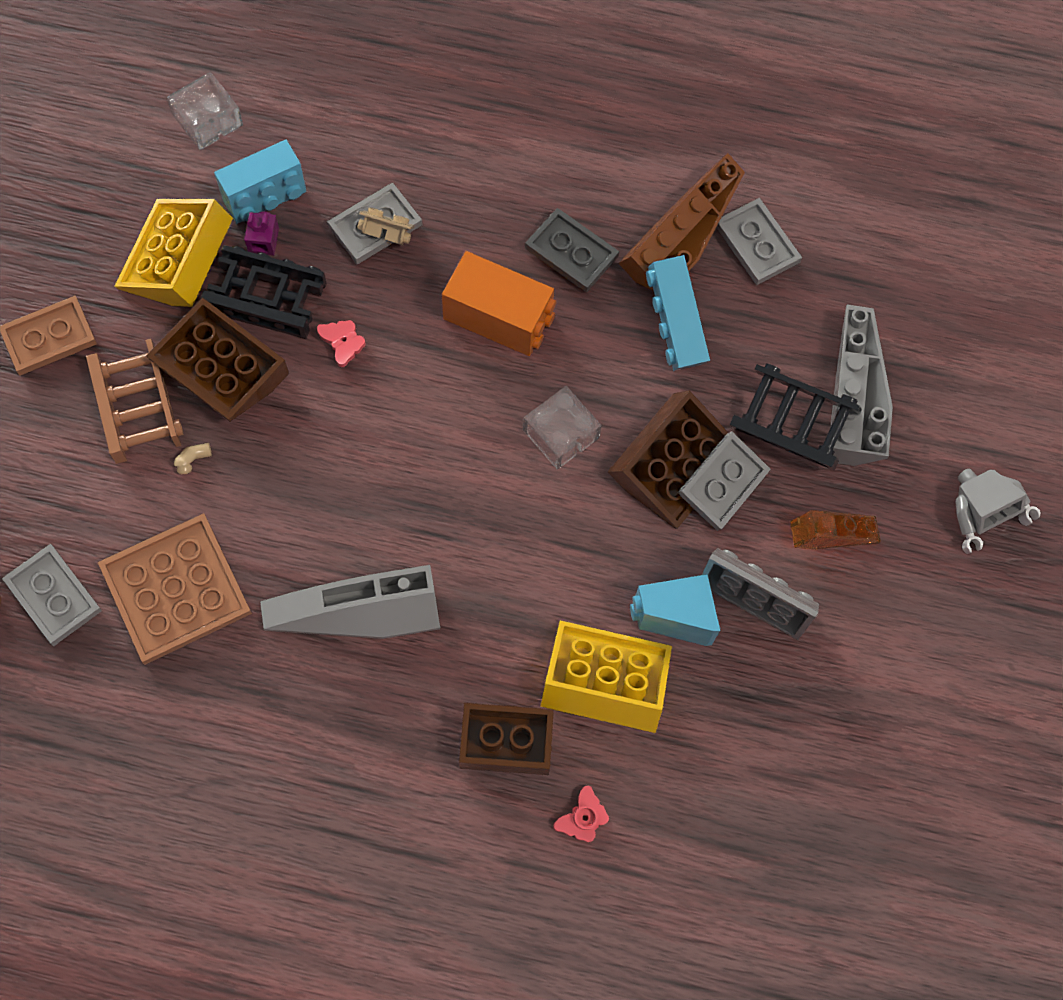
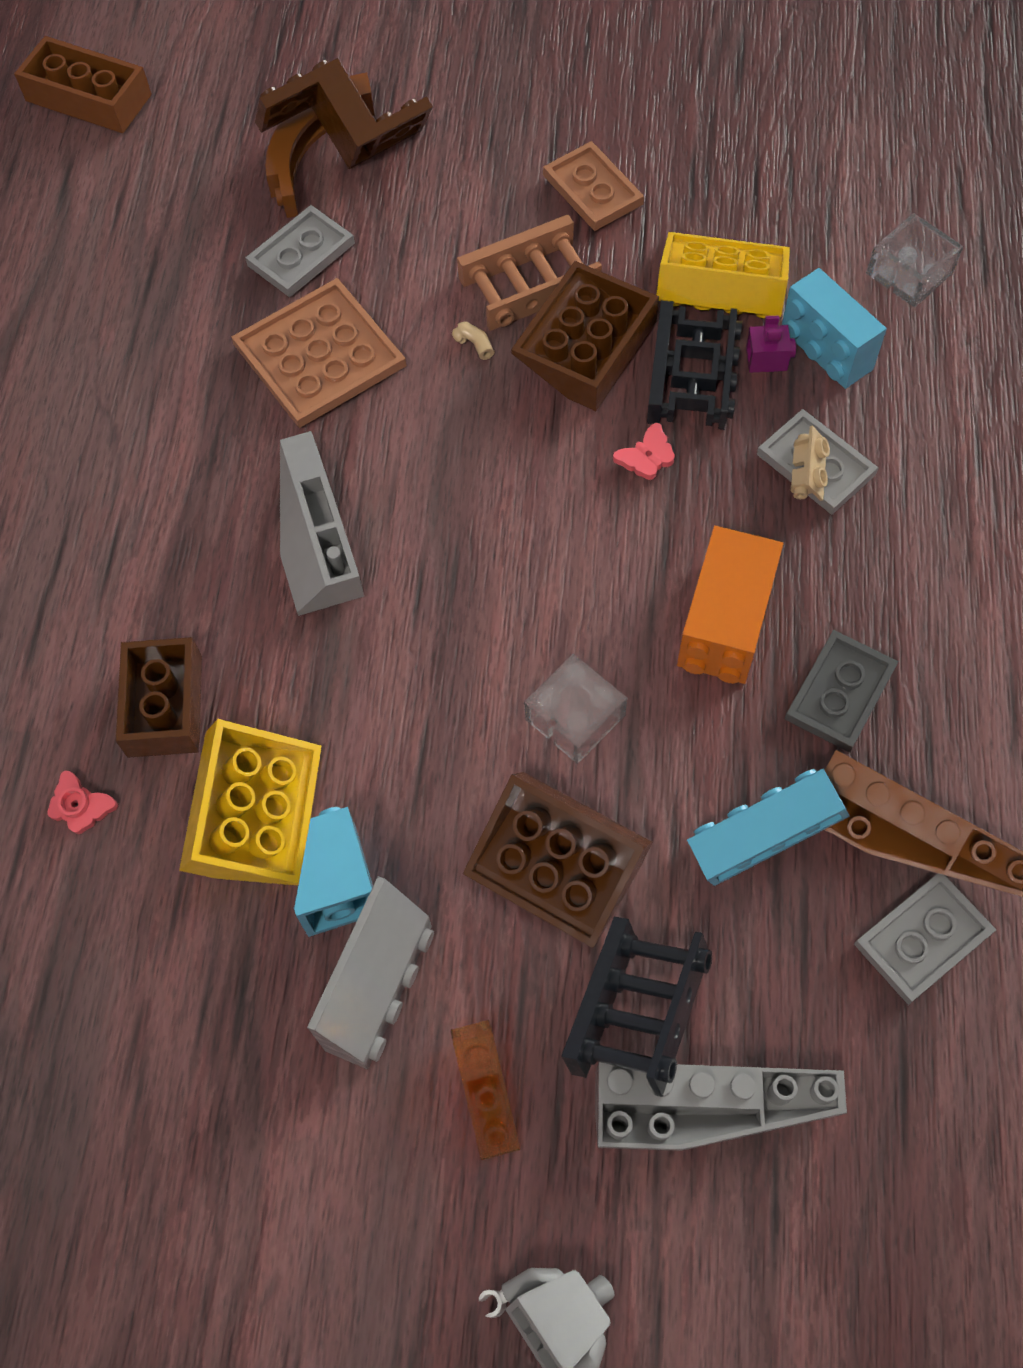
camera: 90 degrees right, 5 degrees down
(724, 481) = (533, 922): light grey plate -> none

